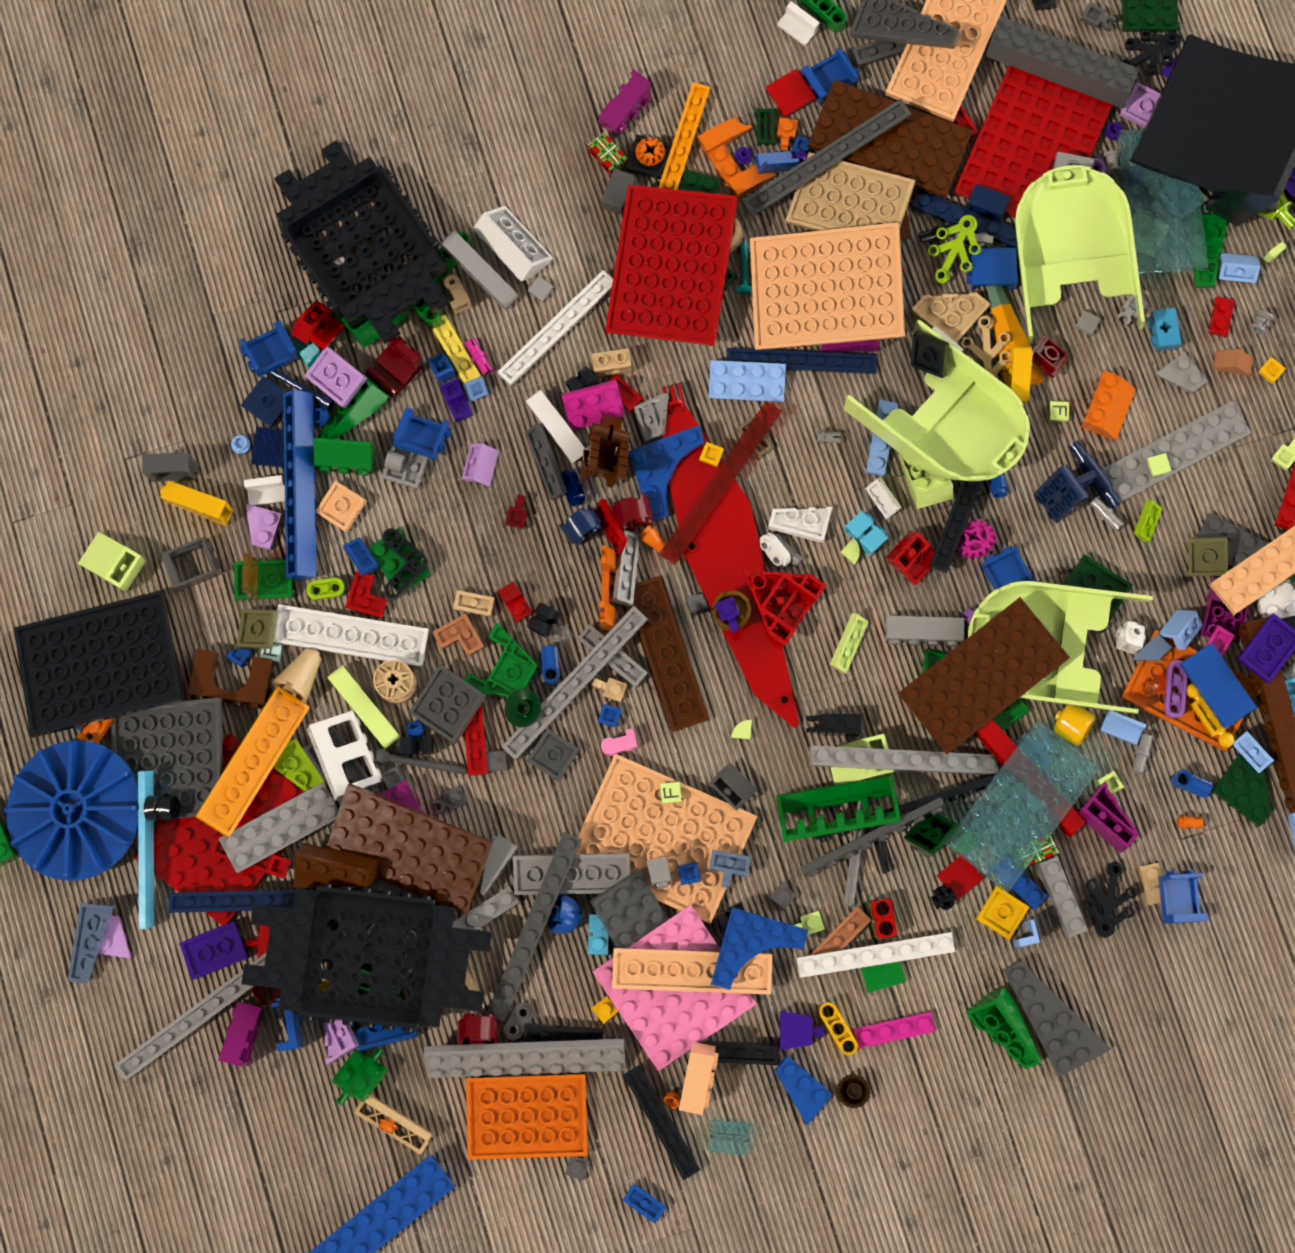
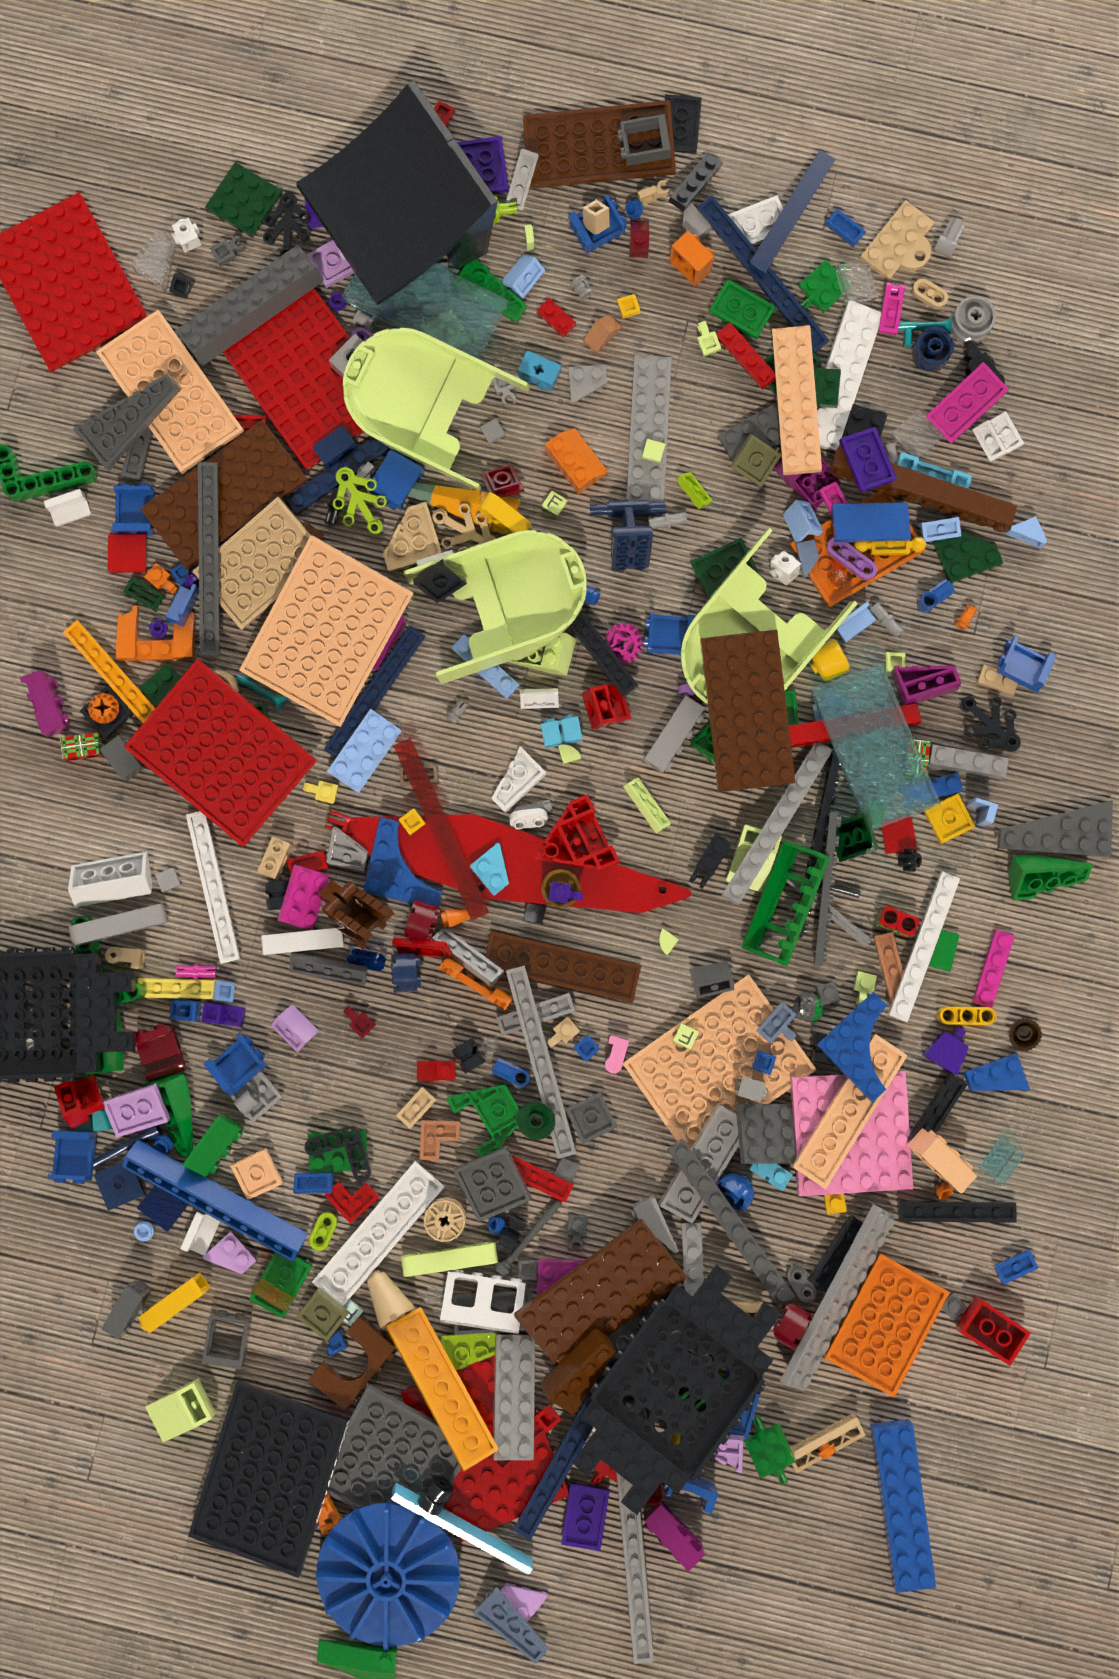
camera: 65 degrees left, 5 degrees up
(576, 1213) = (992, 1330): none -> red brick
(692, 369) = (324, 791): none -> light yellow plate
(712, 545) = (491, 869): none -> medium azure wing
(760, 884) = (807, 1007): none -> dark grey piece

